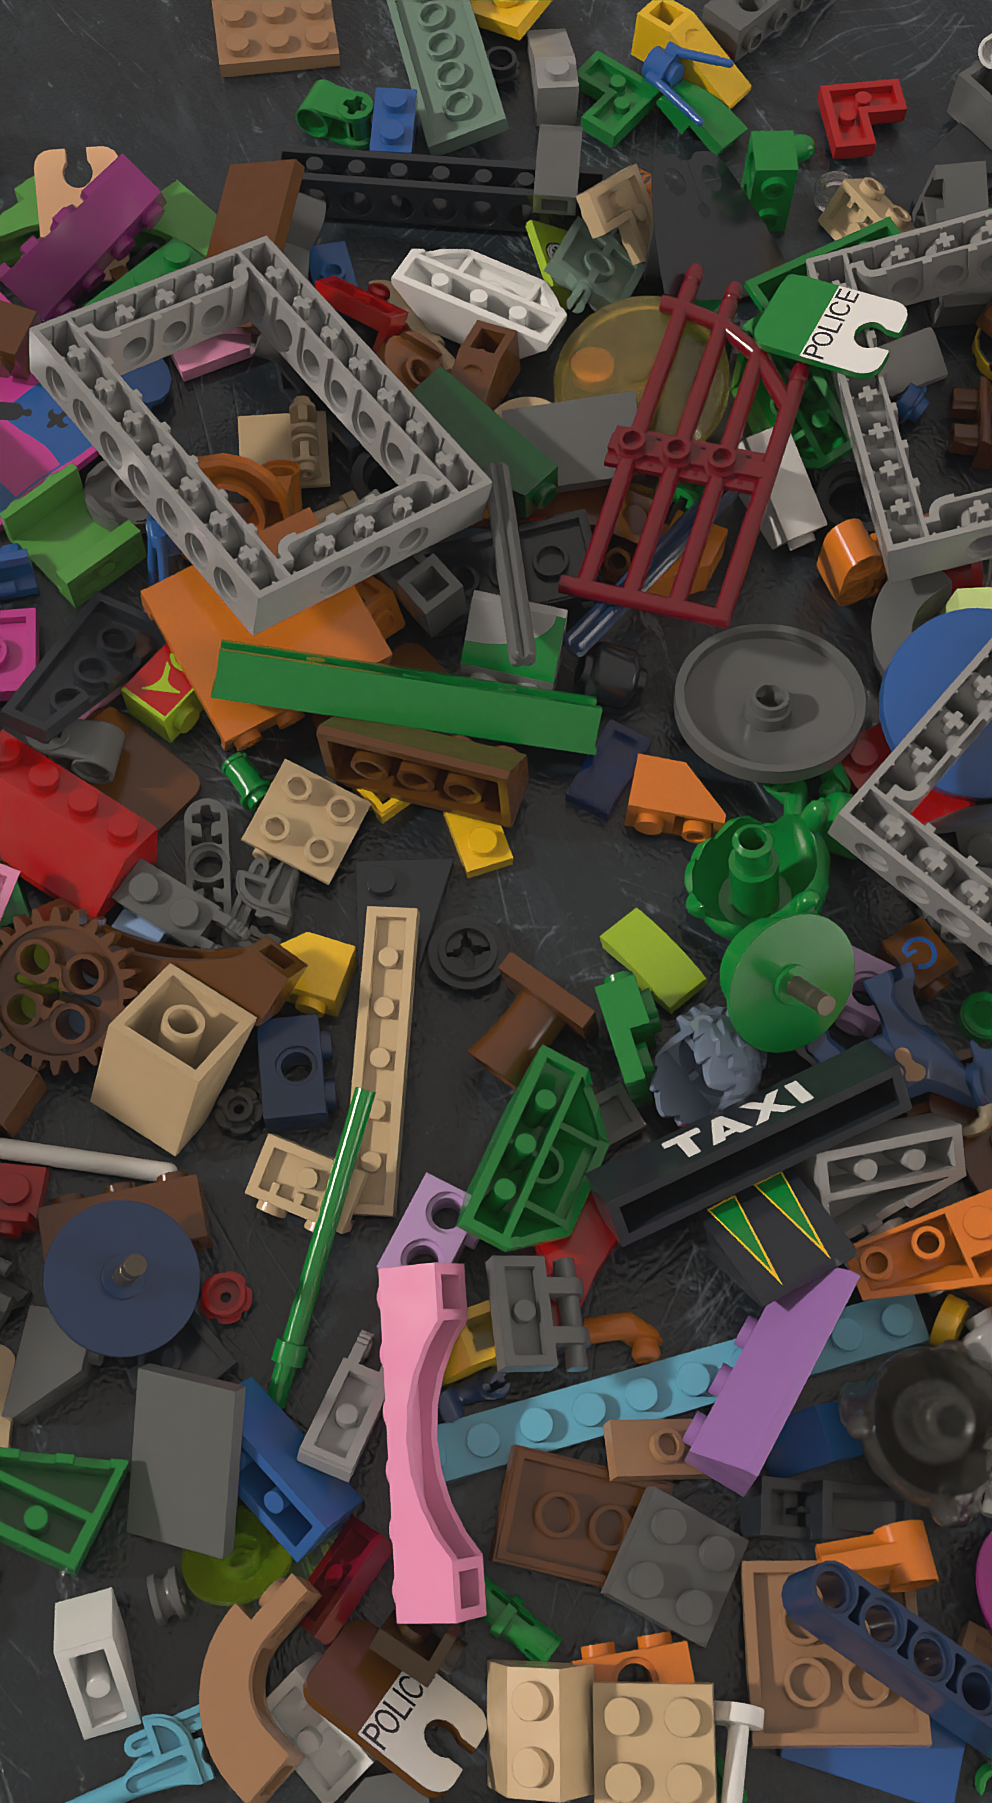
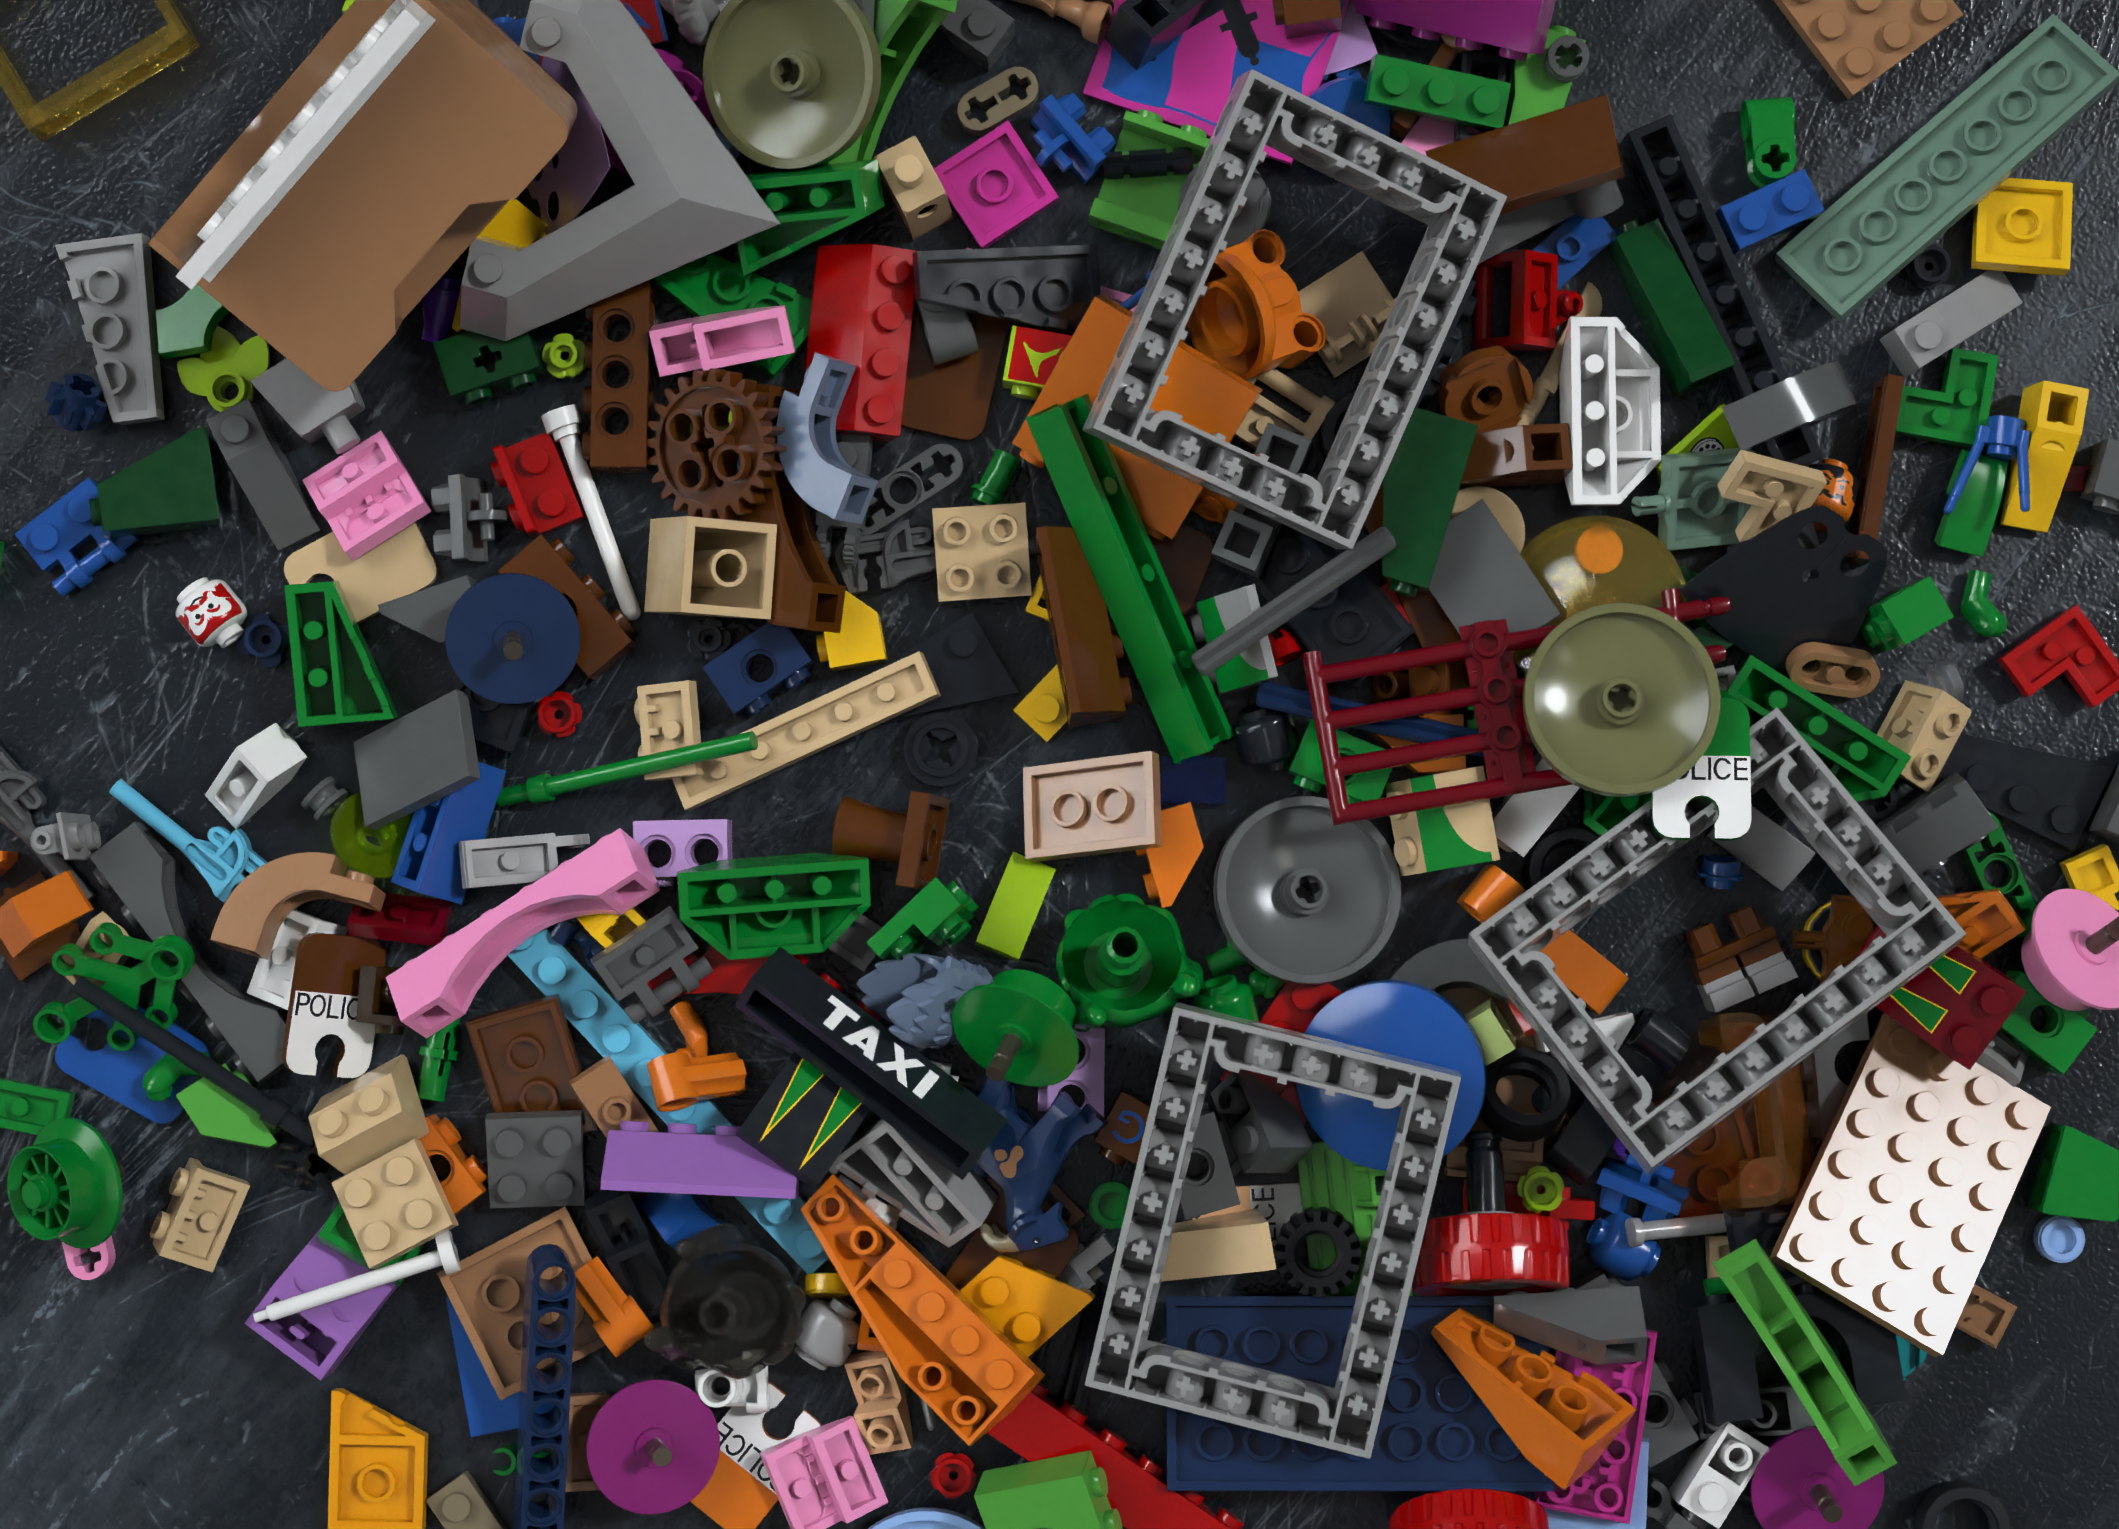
camera: 65 degrees right, 20 degrees up
(56, 529) = (1148, 163): none -> black axle
(158, 900) = (812, 452): none -> sand blue arch
(180, 181) = (1562, 45): none -> dark grey bush
(426, 218) = (1669, 307): none -> dark green slope
(598, 836) = (1092, 806): none -> plate
(622, 149) = (1876, 461): none -> reddish brown tile
(660, 651) = (1309, 773): none -> green brick
(672, 1353) = (685, 1080): none -> orange piece
(741, 348) = (1621, 699): none -> olive dish
(777, 567) = (1443, 835): none -> tan slope
(783, 246) = (1830, 671): none -> medium nougat plate

